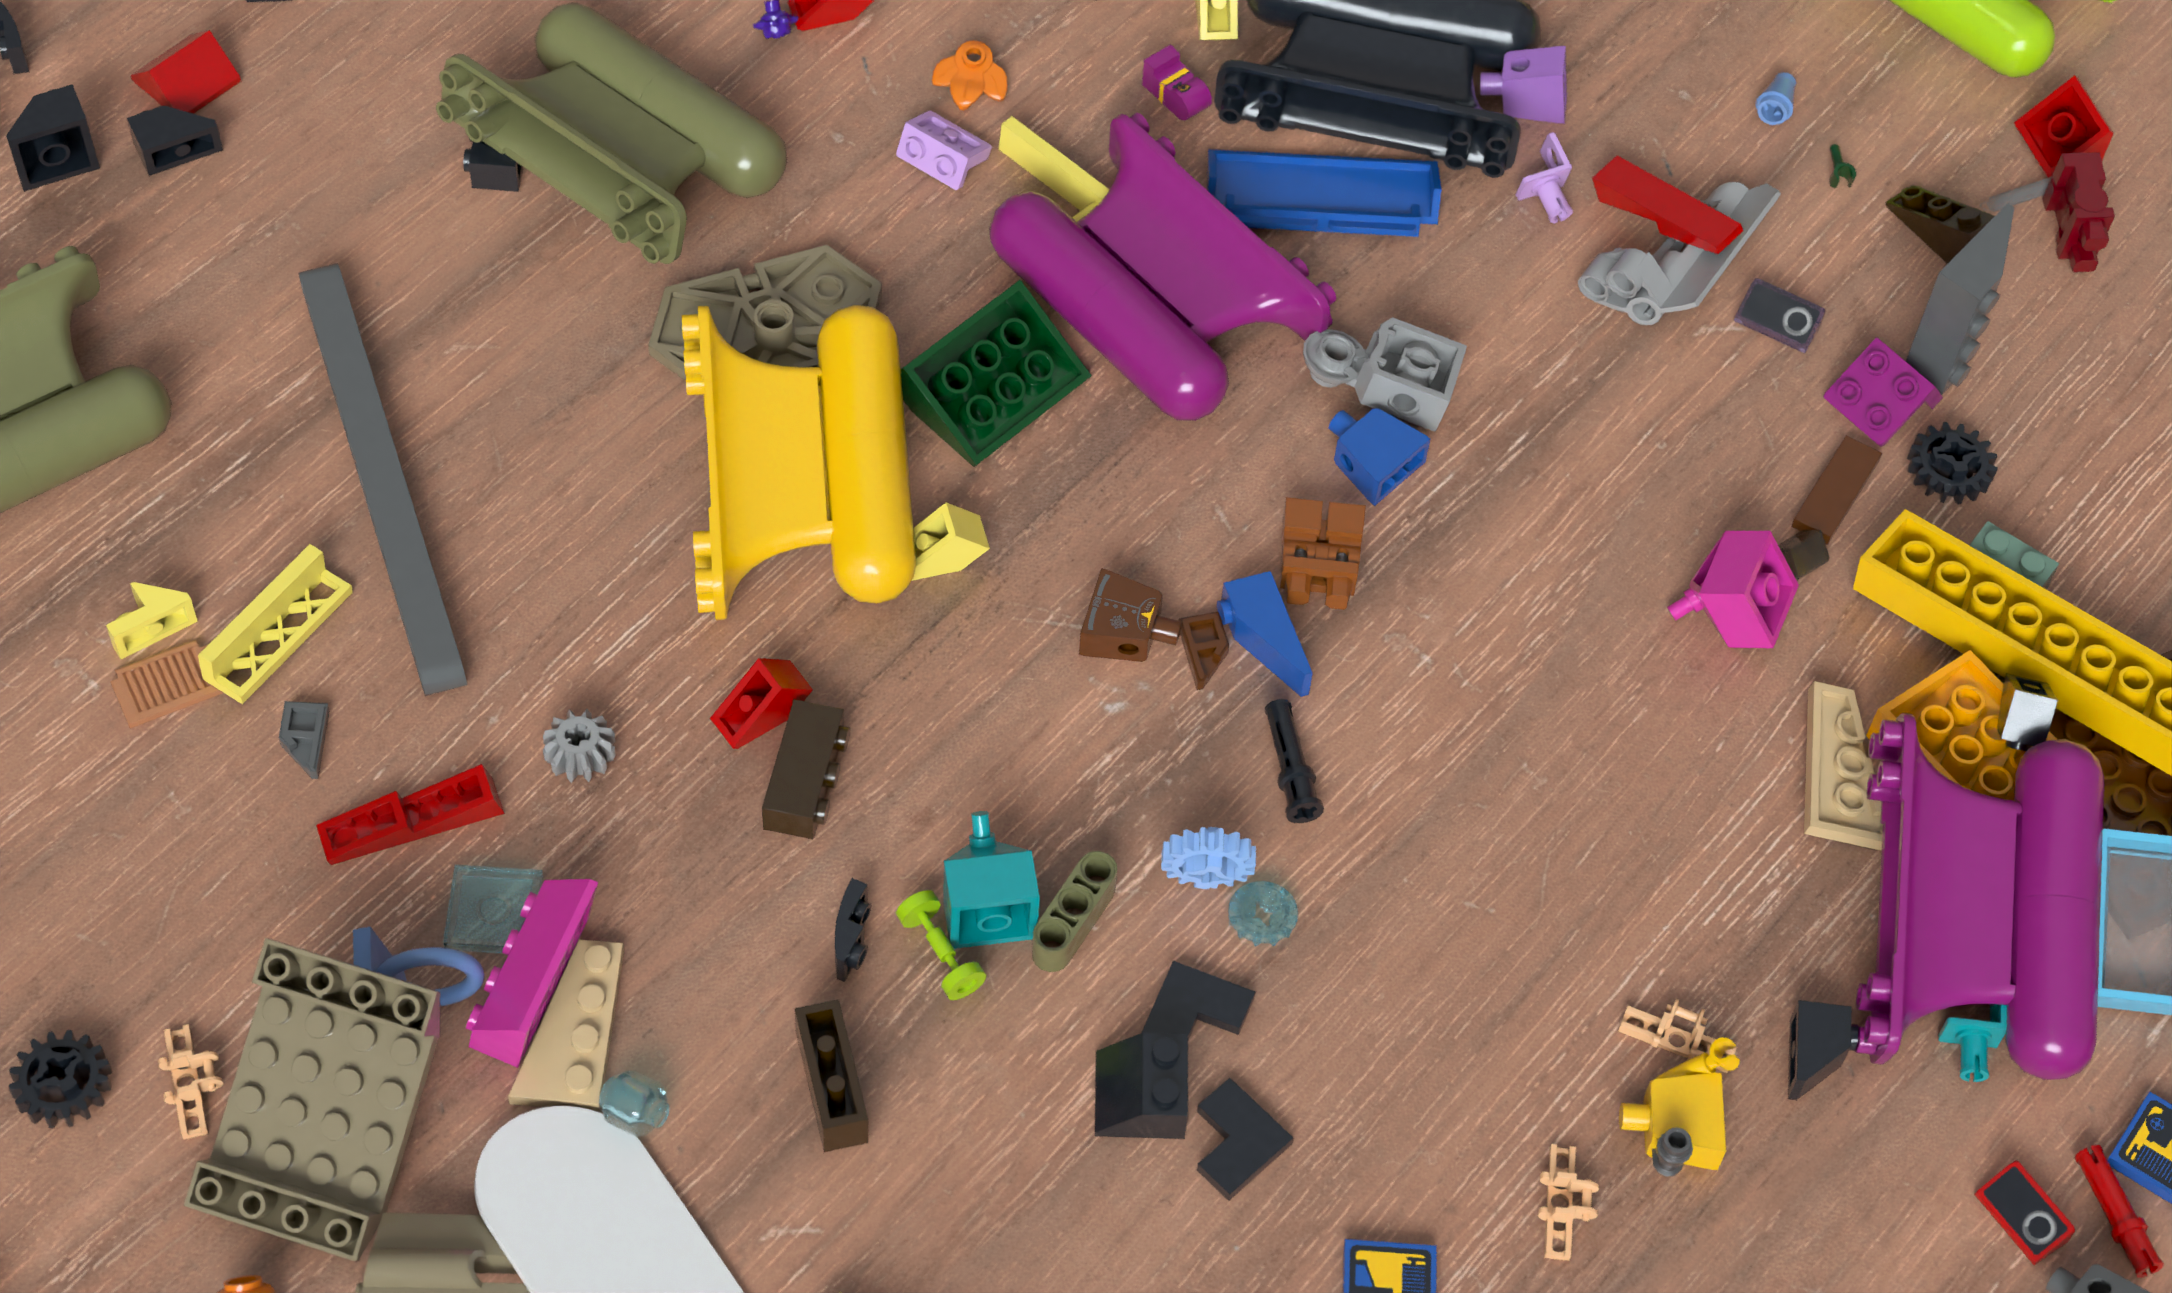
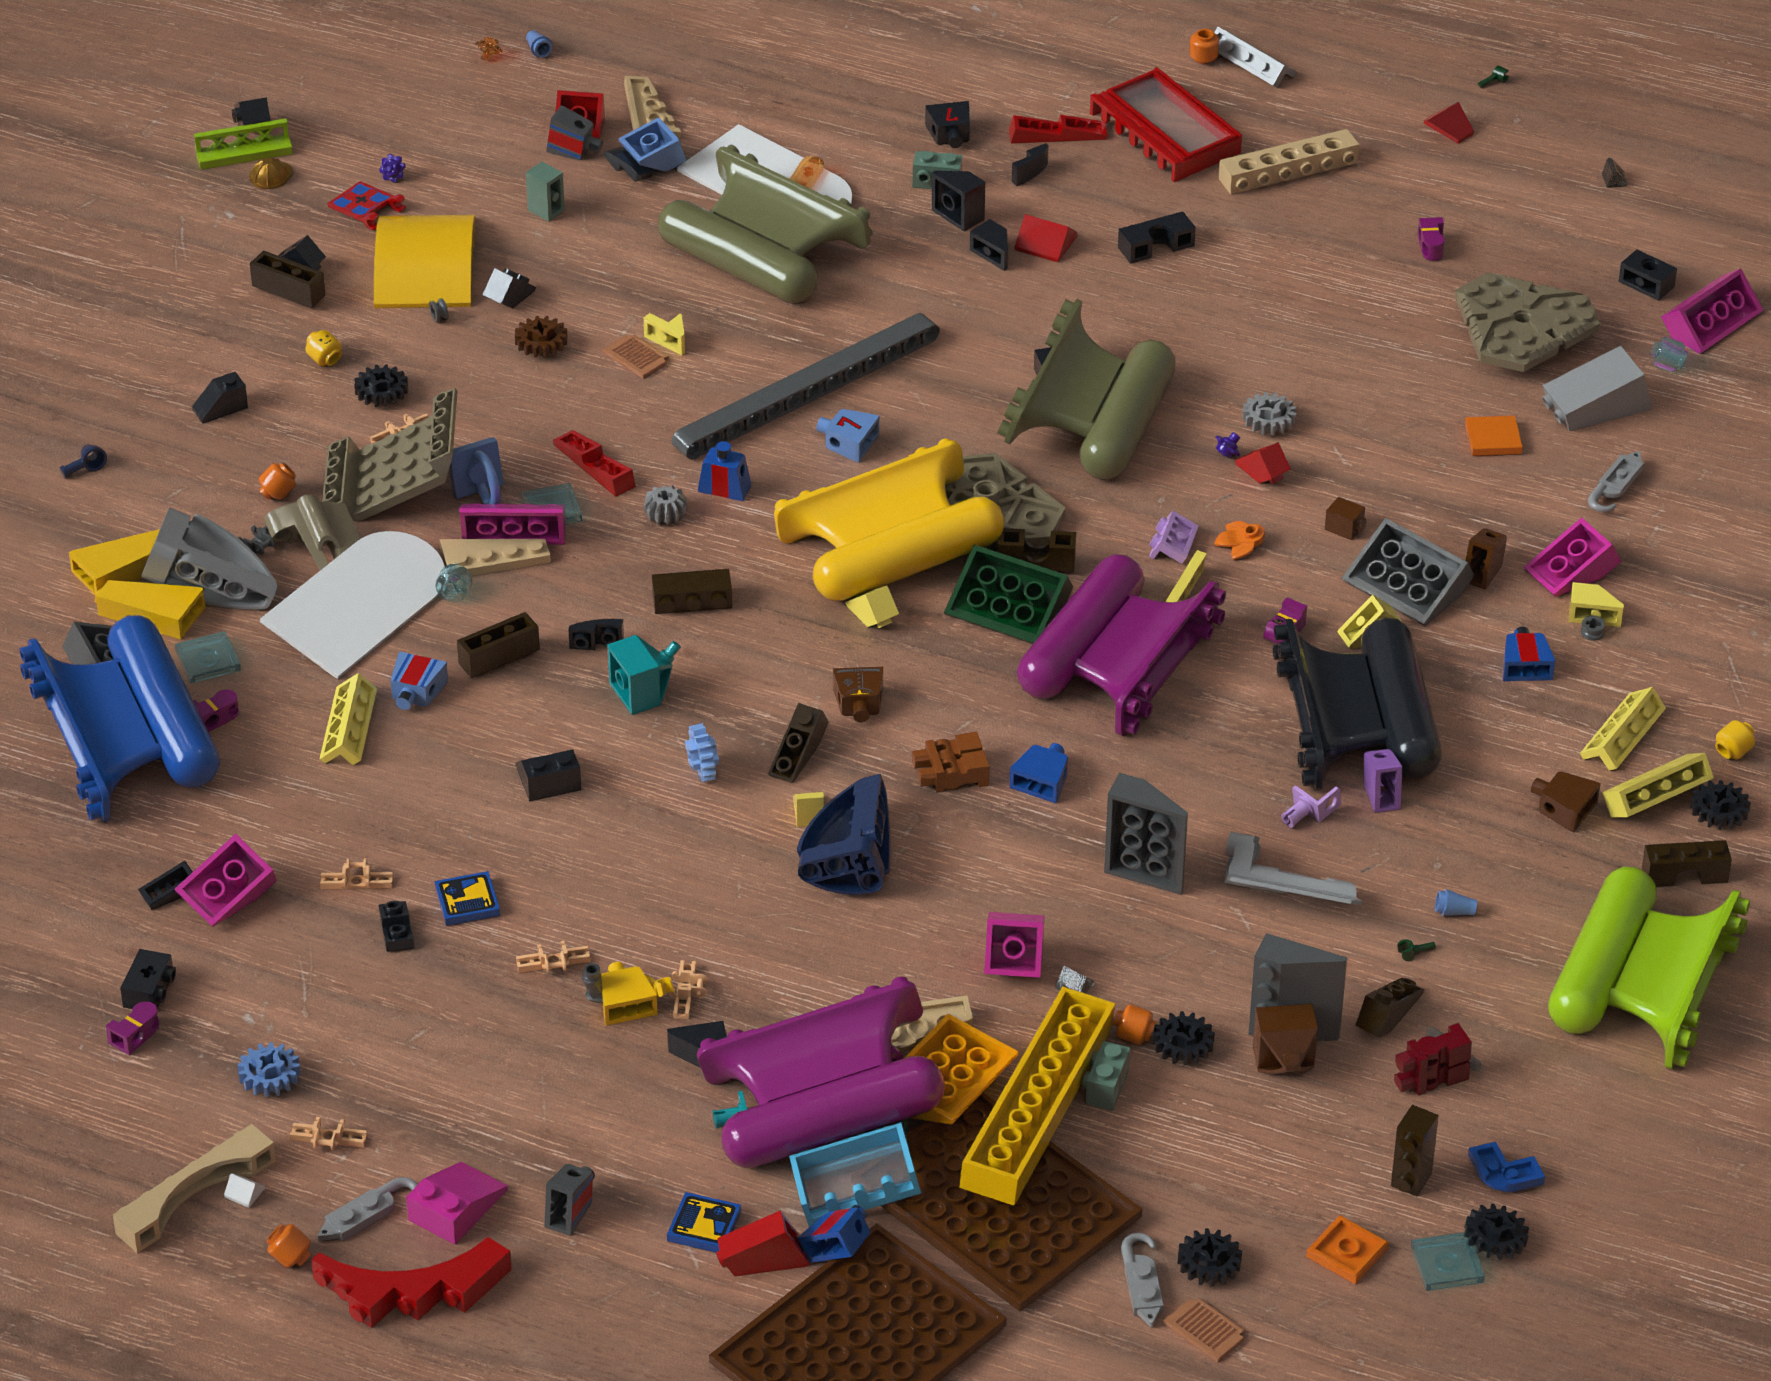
camera: 75 degrees right, 15 degrees down
(61, 802) = (541, 336): none -> reddish brown gear
(261, 618) = (689, 372): light yellow fence -> none
(304, 733) = (627, 410): dark grey tile -> none
(526, 452) = (850, 433): none -> medium blue torso
(552, 644) = (725, 473): none -> blue torso
(760, 701) = (734, 557): red slope -> none
(855, 1226) = (417, 680): none -> medium blue torso
(919, 910) = (585, 684): lime wheel -> none
(925, 288) = (1055, 555): none -> dark brown arch
(1077, 893) = (649, 717): olive beam -> none
(1195, 996) = (616, 778): black tile -> none
(1204, 645) = (862, 734): reddish brown tile -> none
(1208, 731) = (799, 742): none -> dark brown slope
(1250, 1139) = (537, 824): black tile -> none
(1264, 628) = (885, 750): blue slope -> none
(1272, 899) = (687, 788): clear light blue gear -> none
(1295, 776) = (785, 787): black pin -> none
(1326, 192) = (1241, 710): blue slope -> none
(1344, 756) = (807, 807): none -> light yellow slope
(1400, 372) = (1102, 756): light grey brick -> none
(1456, 722) = (849, 841): none -> dark blue panel
(1610, 361) = (1145, 835): none -> dark grey slope
(1673, 210) = (1310, 856): red slope -> none
(1780, 315) = (1260, 926): slope -> none
(1837, 488) = (1136, 991): reddish brown tile -> none
(1880, 392) = (1228, 993): magenta bracket -> none
(1917, 497) = (1134, 1024): none -> orange head
(2016, 353) = (1285, 1038): none -> reddish brown piece
(2025, 712) = (973, 1071): slope -> none
(2025, 1212) = (631, 1162): slope -> none
(2064, 124) = (1515, 1055): red slope -> none
(2127, 1227) = (640, 1206): red pin -> none

